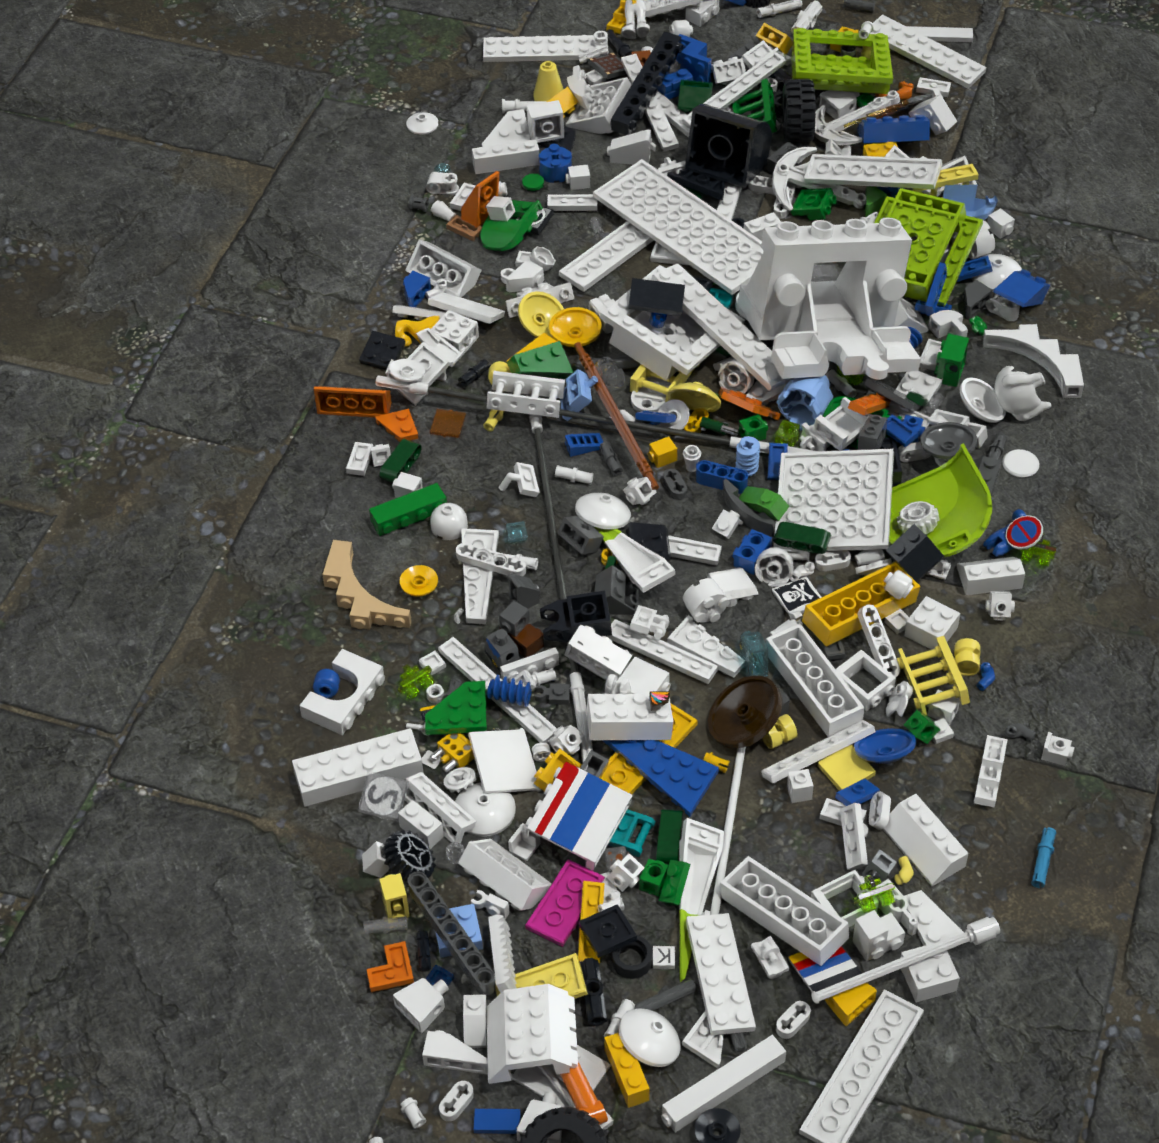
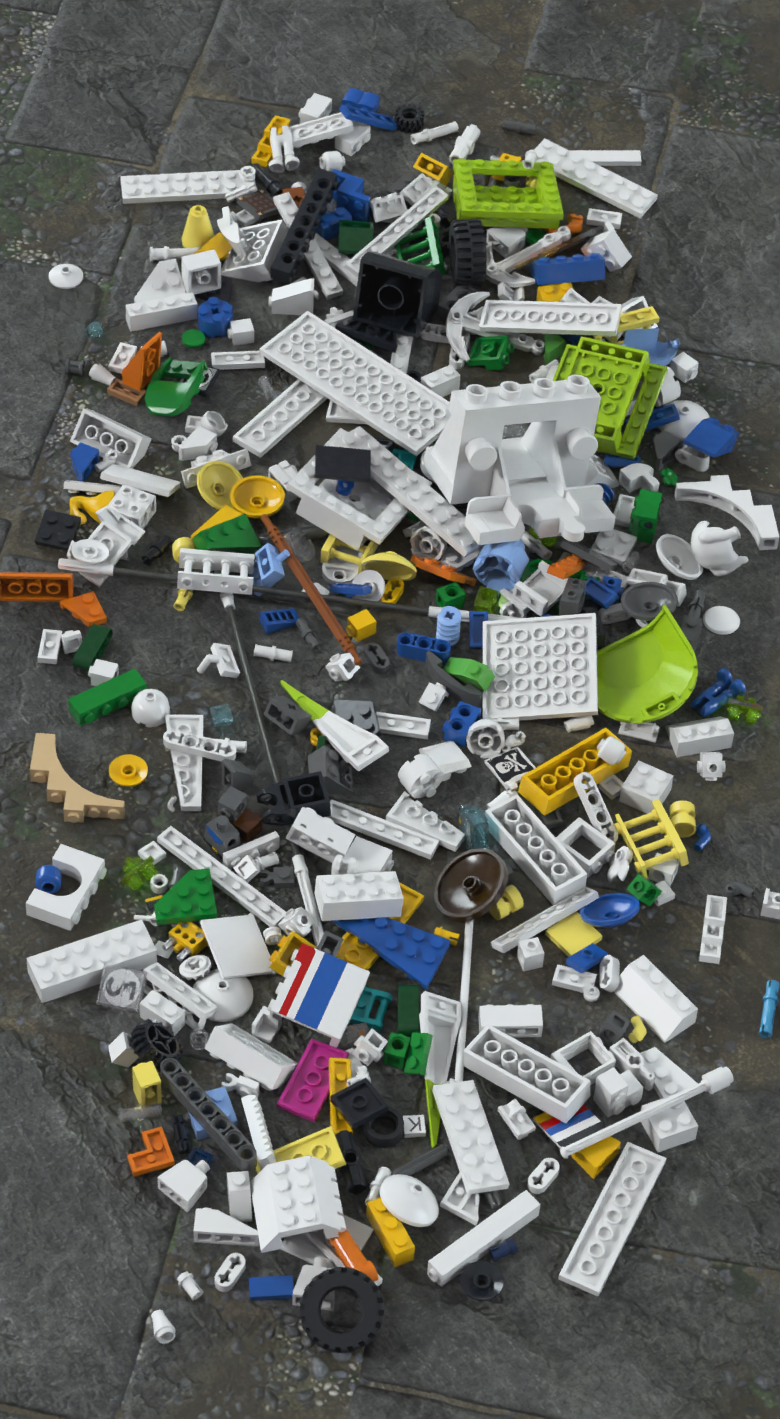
camera: 10 degrees left, 0 degrees up
(441, 183) = (96, 343): white piece -> none
(448, 423) = (135, 604): clear orange piece -> none
(500, 208) = (165, 371): white brick -> none
(509, 691) = (236, 876): blue piece -> none
(602, 511) = (307, 689): white dish -> none
(647, 620) = (364, 799): white plate -> none
(658, 699) = (387, 877): tile -> none
(691, 456) = (391, 629): white cone -> none
(716, 426) = (413, 596): dark green piece -> none
(743, 1097) = (503, 1249): none -> dark blue pin
(776, 852) = (513, 1019): none -> white brick
(802, 537) = (511, 707): dark green beam -> none
(832, 560) = (542, 728): white beam -> none
(853, 836) = (587, 999): white plate -> none
(865, 899) = (604, 1058): clear neon green hips -> none
(870, 568) = (583, 734): white dish -> none
(915, 553) = (625, 717): black slope -> none
(917, 398) = (613, 557): dark green tile -> none
(918, 513) = (624, 682): white gear -> none
(936, 289) = (625, 441): blue tile -> none
(1024, 532) = (730, 691): piece -> none

